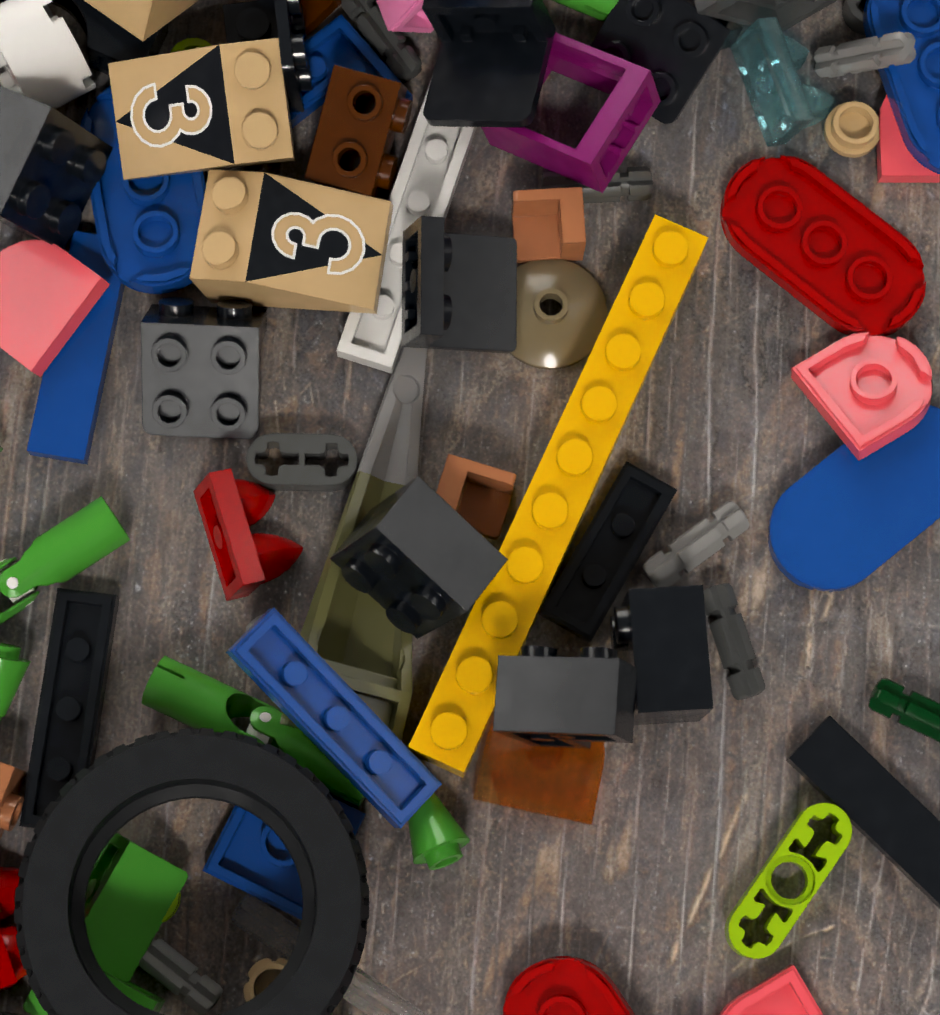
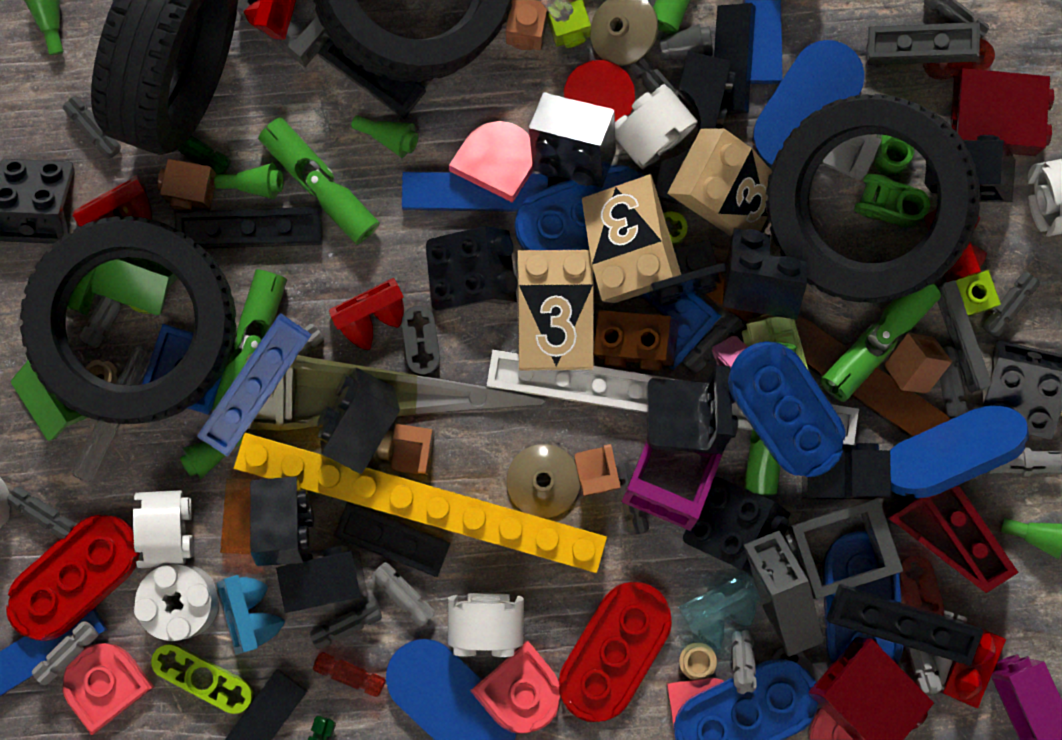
camera: 85 degrees right, 5 degrees up
(458, 289) = (540, 420): black bracket -> none
(543, 904) = (161, 528): none -> white brick
(699, 895) = (155, 608): none -> white brick
(717, 800) = (246, 629): none -> dark azure tile
(763, 417) = (485, 623): none -> white brick
(809, 647) = (349, 674): none -> clear red axle

